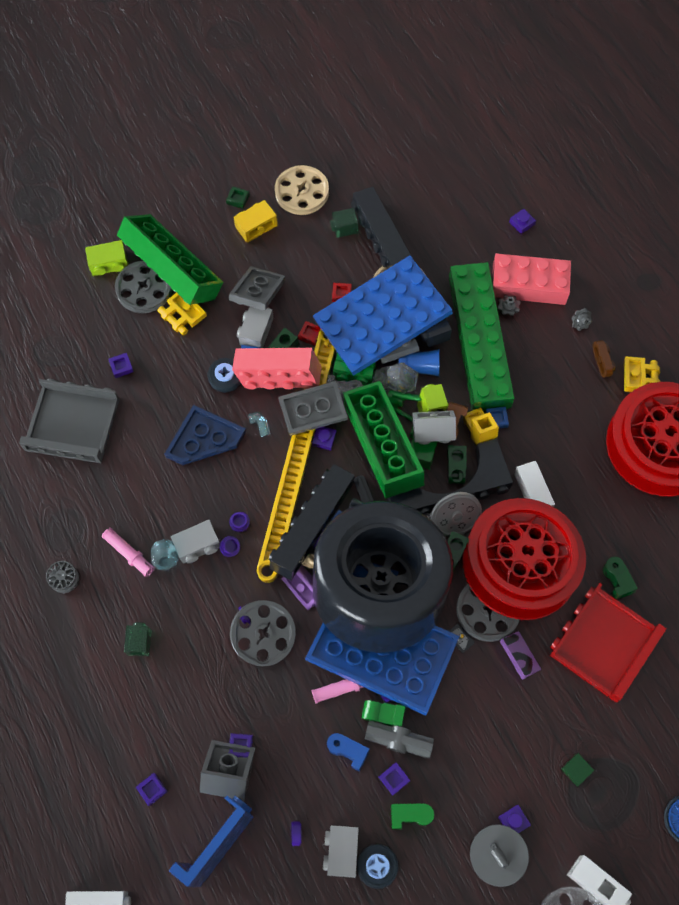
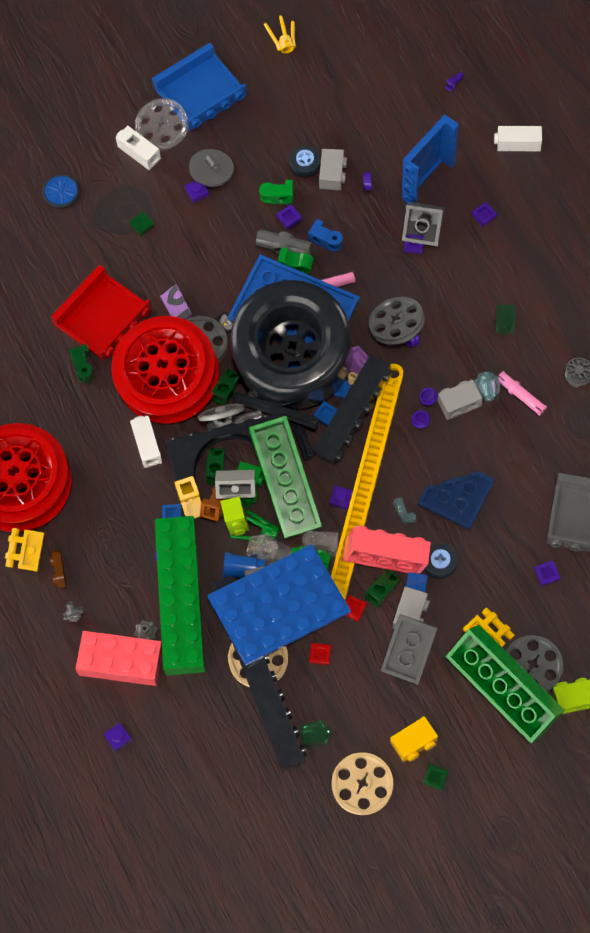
camera: 175 degrees left, 0 degrees up
(312, 408) = (351, 510): dark grey plate -> none

